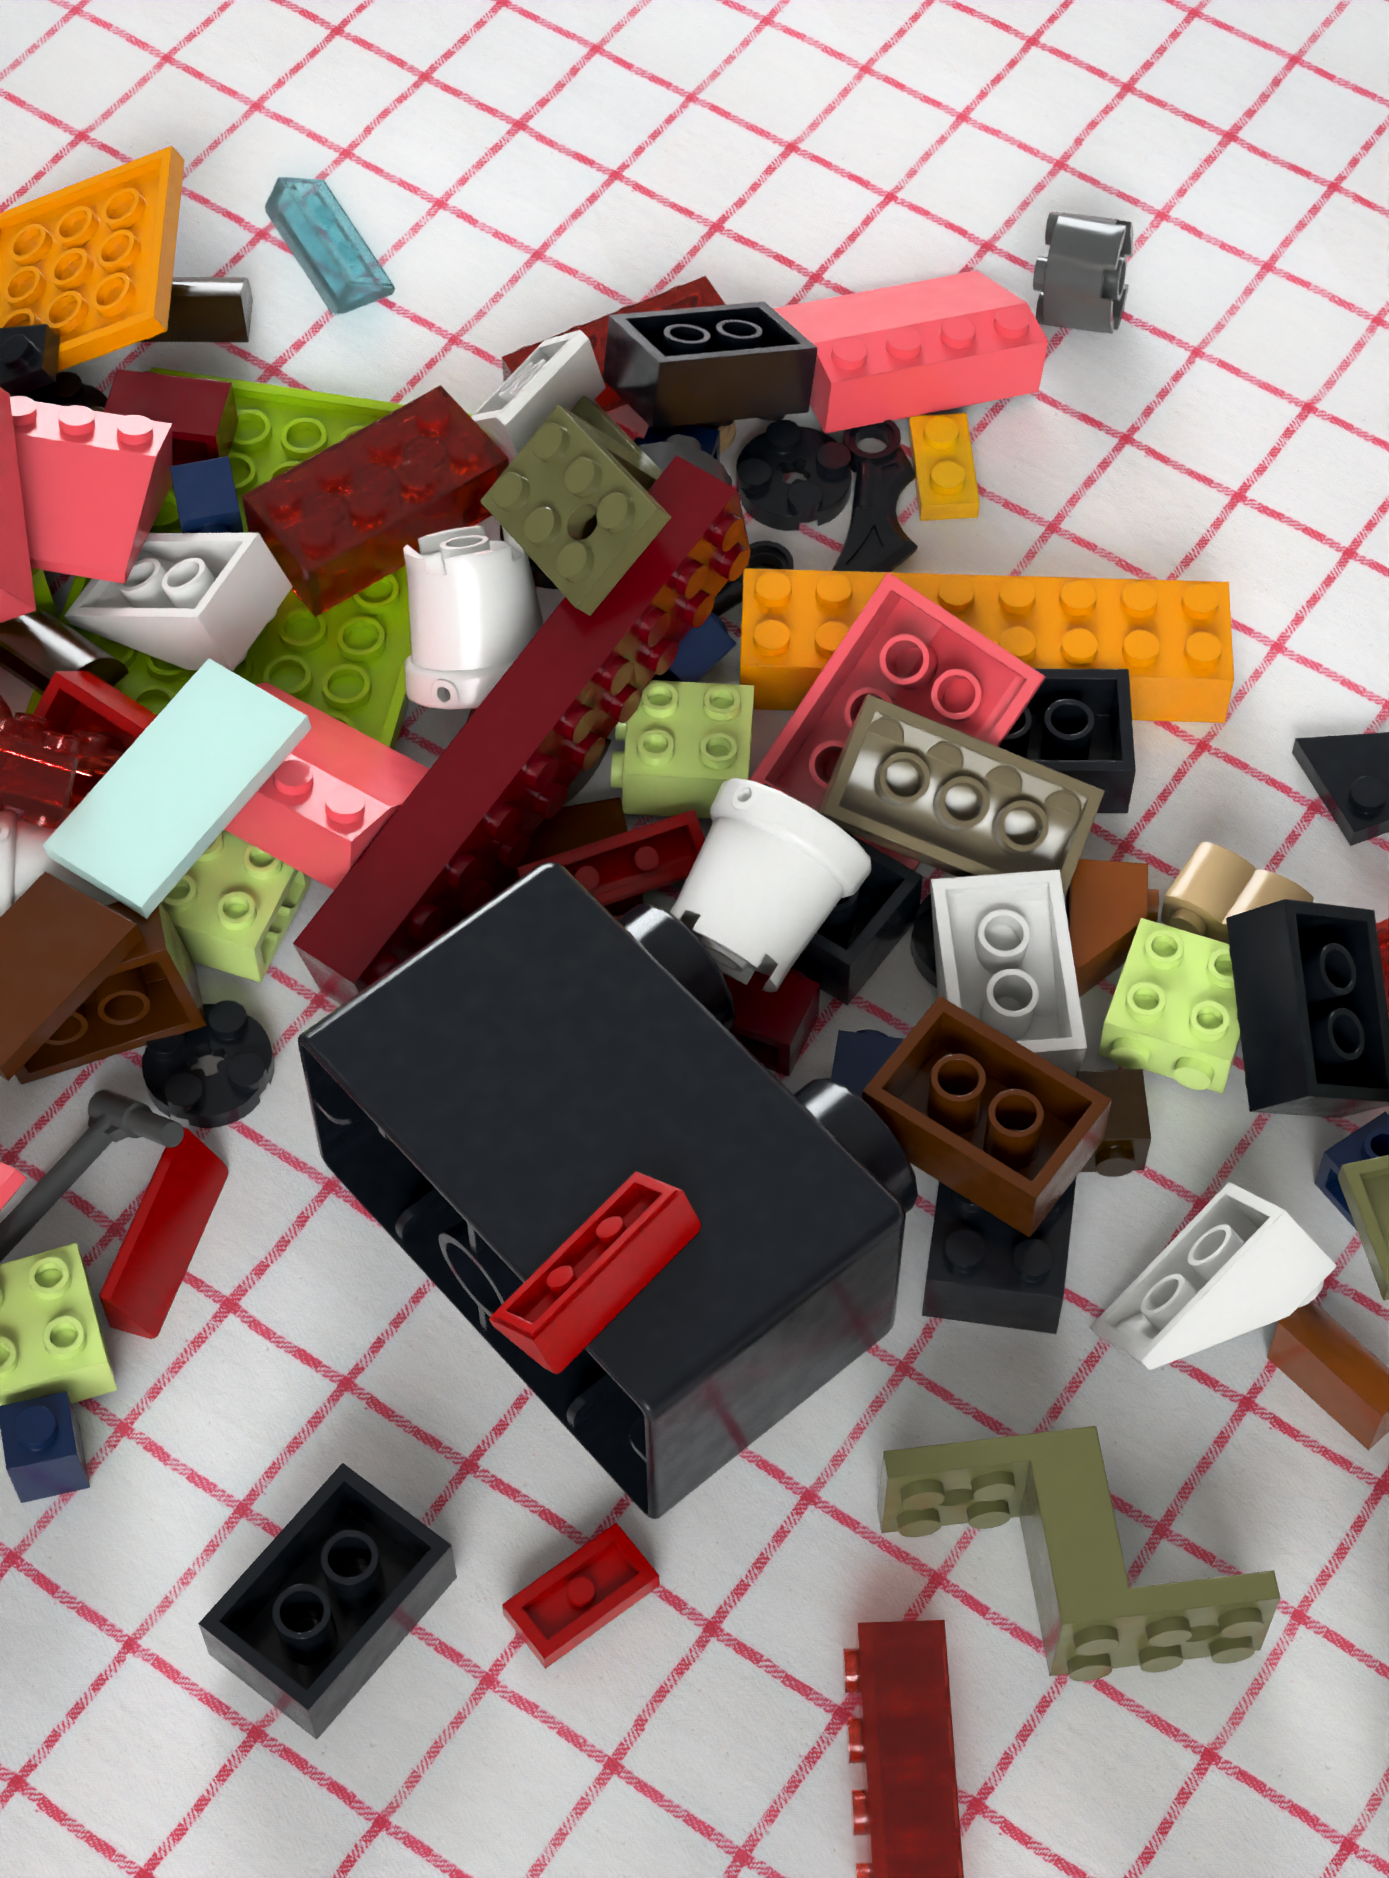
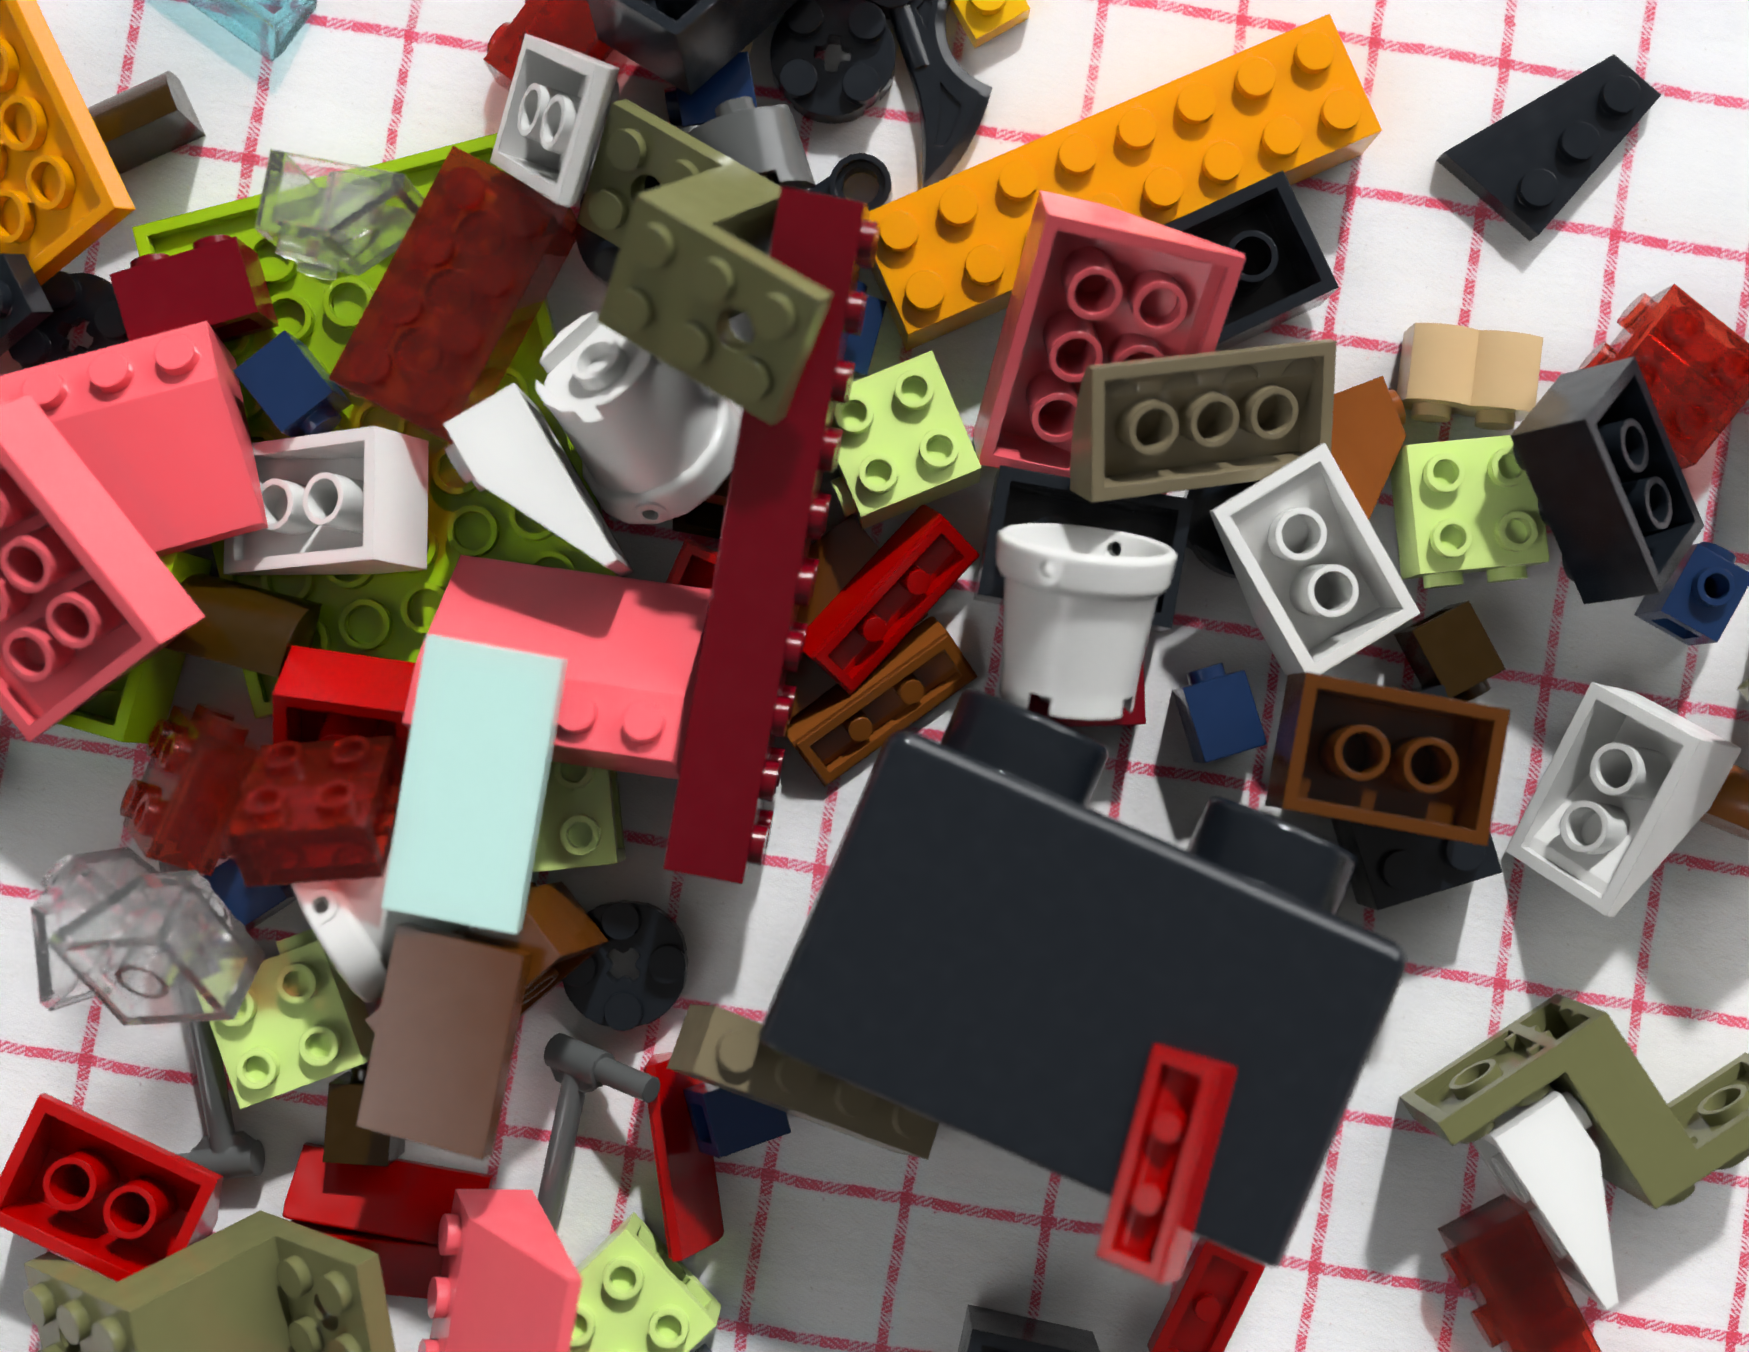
camera: 30 degrees left, 30 degrees up
(238, 1210) = (731, 1122): none -> dark blue brick
(316, 1187) = (728, 1054): none -> dark tan brick
(317, 391) = (334, 213): none -> clear slope
(360, 627) = (515, 455): none -> white slope
(976, 1563) = (1556, 1174): none -> white slope

